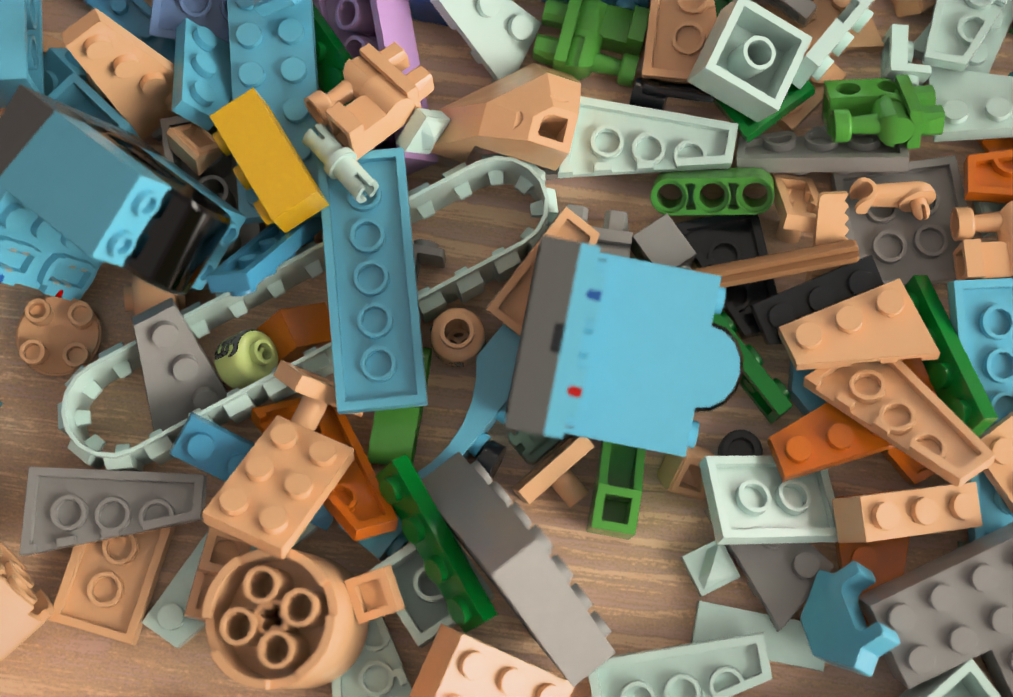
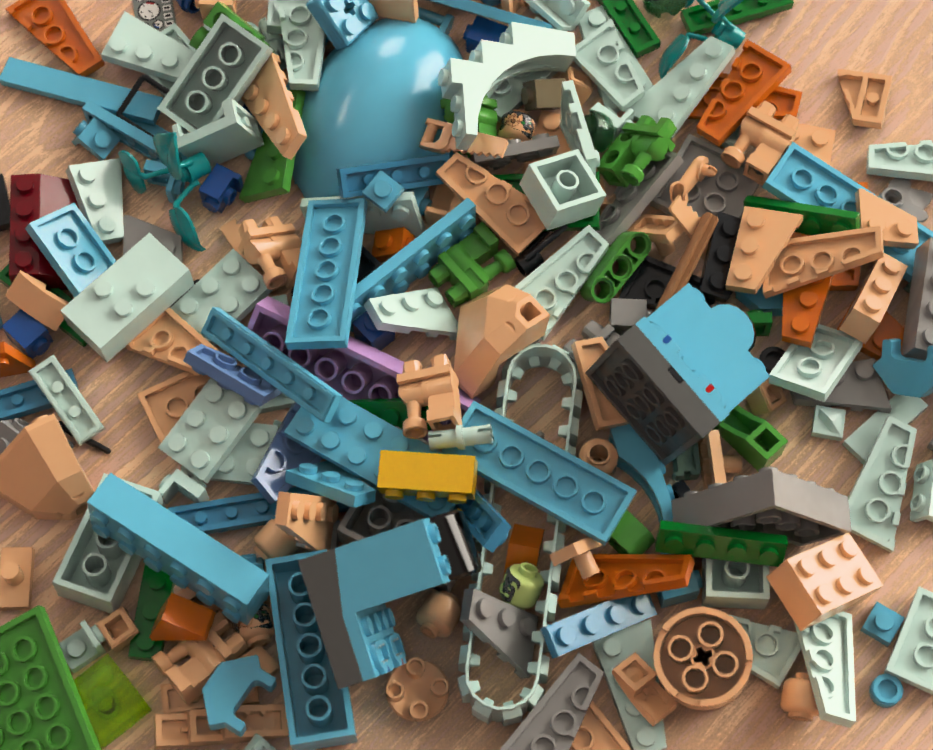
camera: 55 degrees left, 10 degrees down
(193, 146) = (373, 520): light nougat slope -> none
(279, 486) = (626, 603): light nougat plate -> none
(374, 594) = (725, 597): light nougat plate -> none
(422, 130) = (467, 386): light aqua tile -> none
(867, 51) = (600, 130): none -> clear green hair

